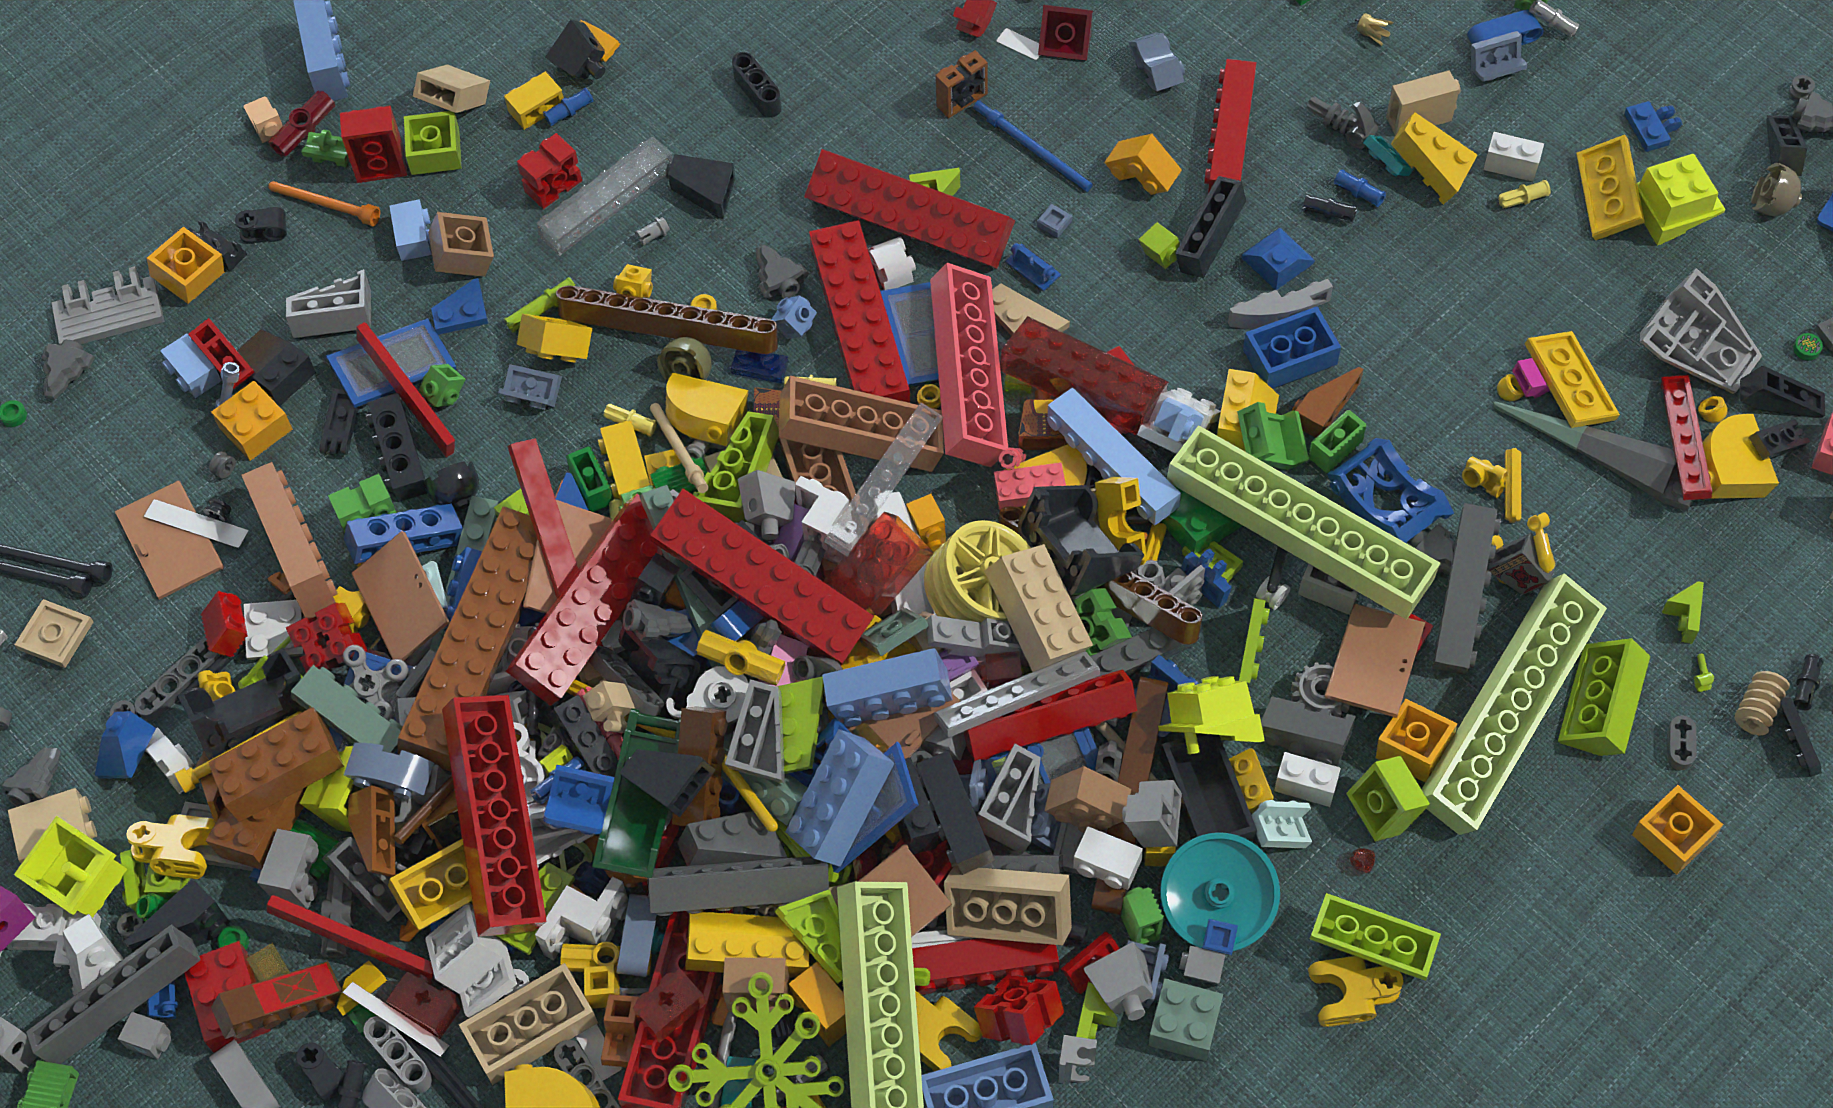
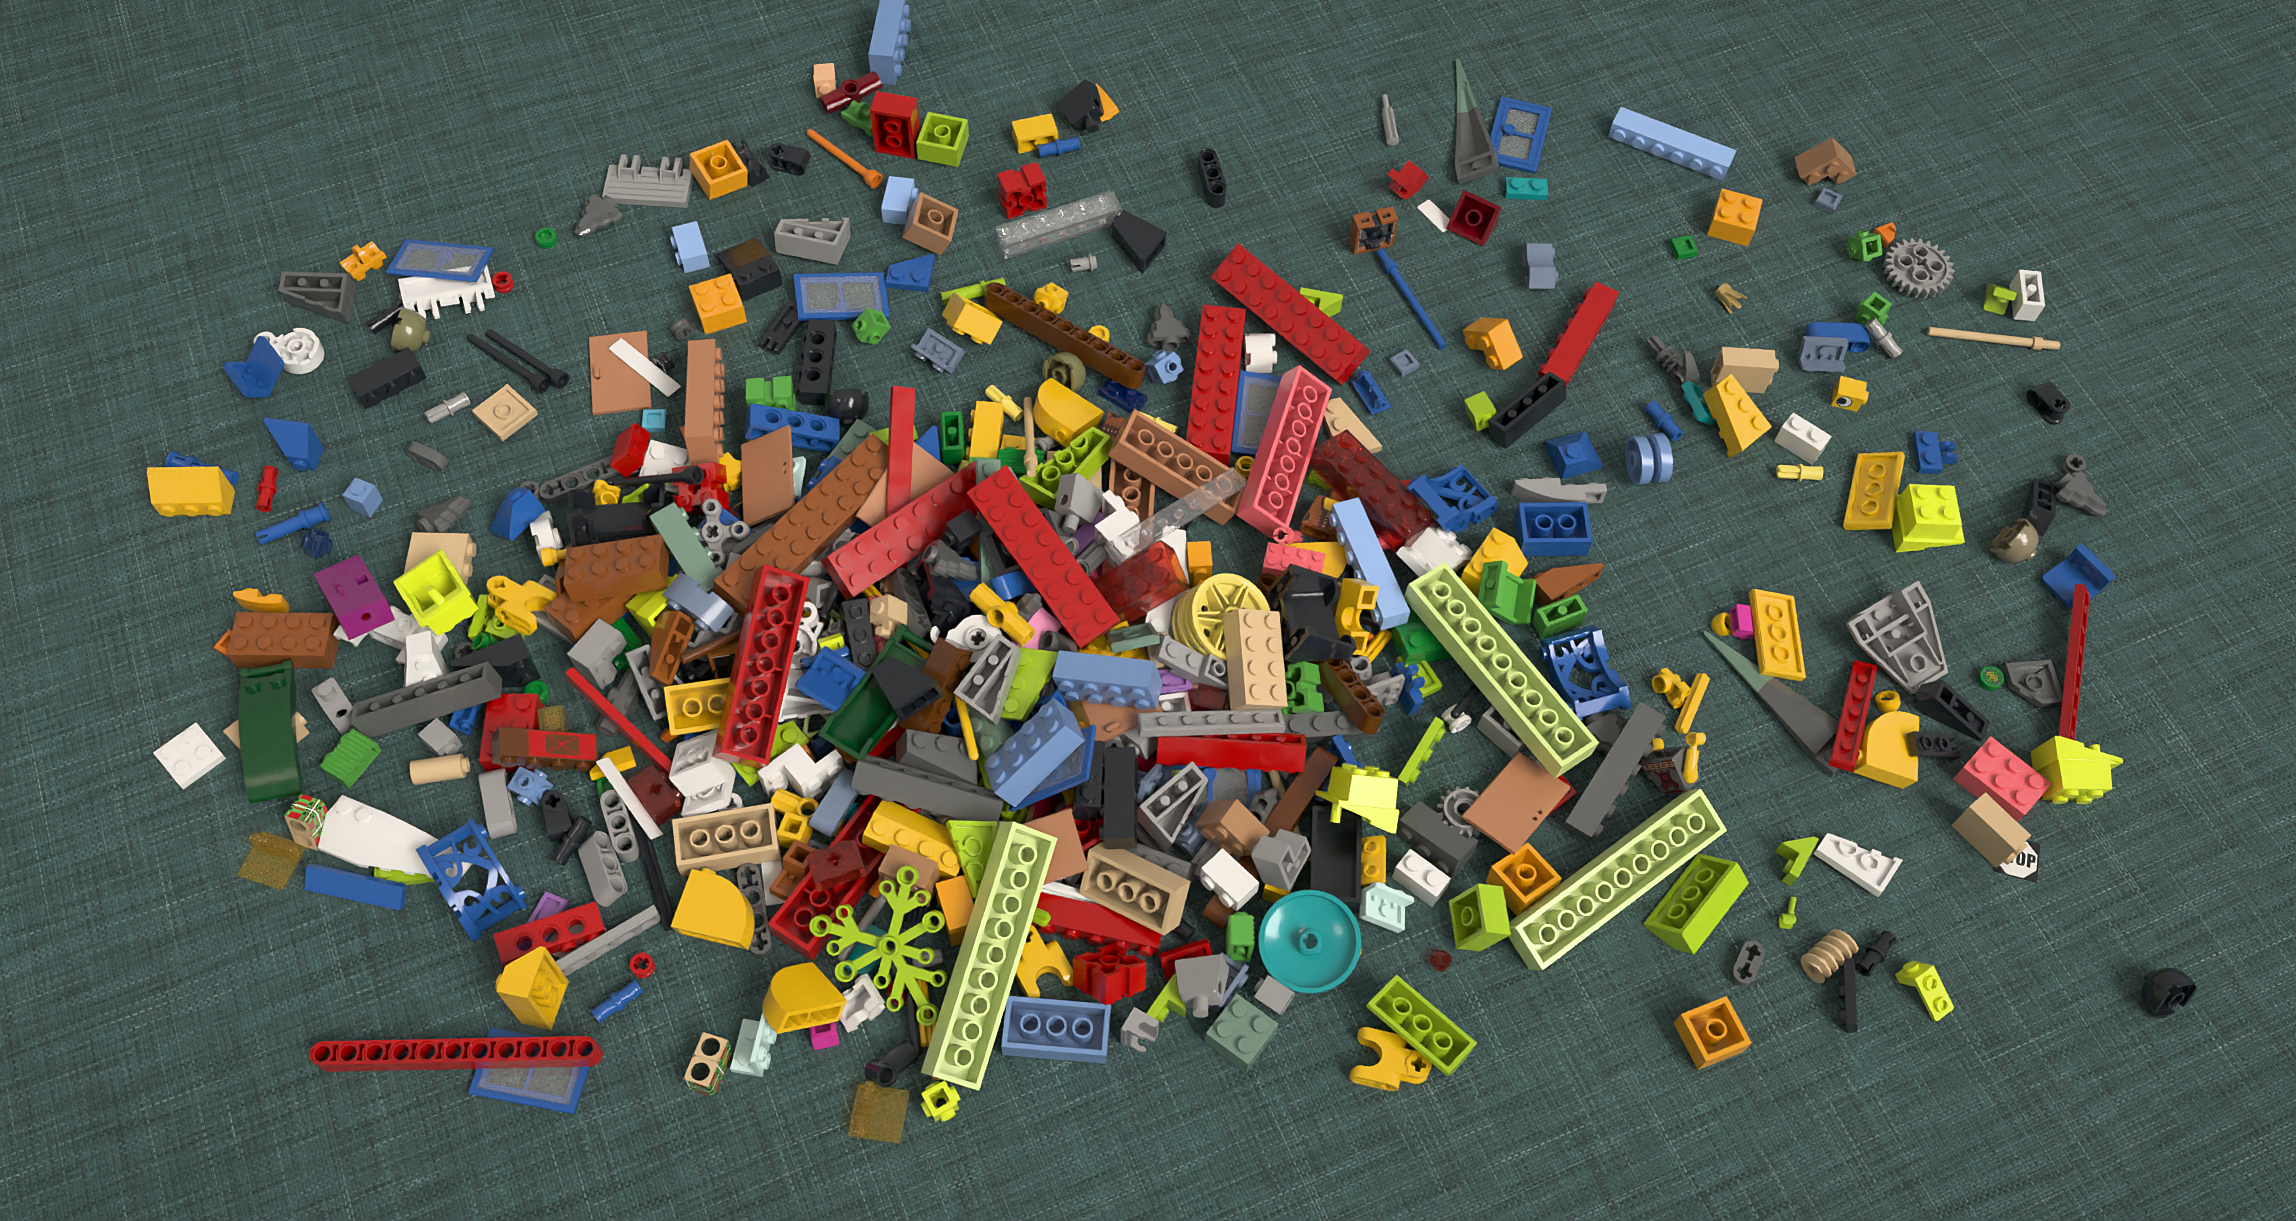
camera: 15 degrees right, 0 degrees up
(158, 1069) = (439, 769): none -> tan brick
(219, 349) = (715, 244): red slope -> none
(229, 376) = (712, 262): sand blue bar -> none
(235, 580) = (654, 420): none -> medium azure tile
(275, 1049) = (529, 786): none -> medium blue brick
(315, 628) = (691, 475): none -> black piece
(406, 389) = (841, 320): red tile -> none
(451, 88) = (973, 102): tan brick -> none
(1178, 419) = (1432, 551): light blue brick -> none
(1180, 375) = (1456, 517): none -> blue fence
(1220, 936) = (1294, 977): blue tile -> none
(1330, 208) = (1631, 427): black pin -> none
(1362, 235) = (1649, 459): none -> medium blue wheel
(1542, 90) = (1849, 394): none -> yellow brick
(1748, 26) = (2048, 400): none -> black piece
(1758, 595) = (1860, 865): none -> white wing

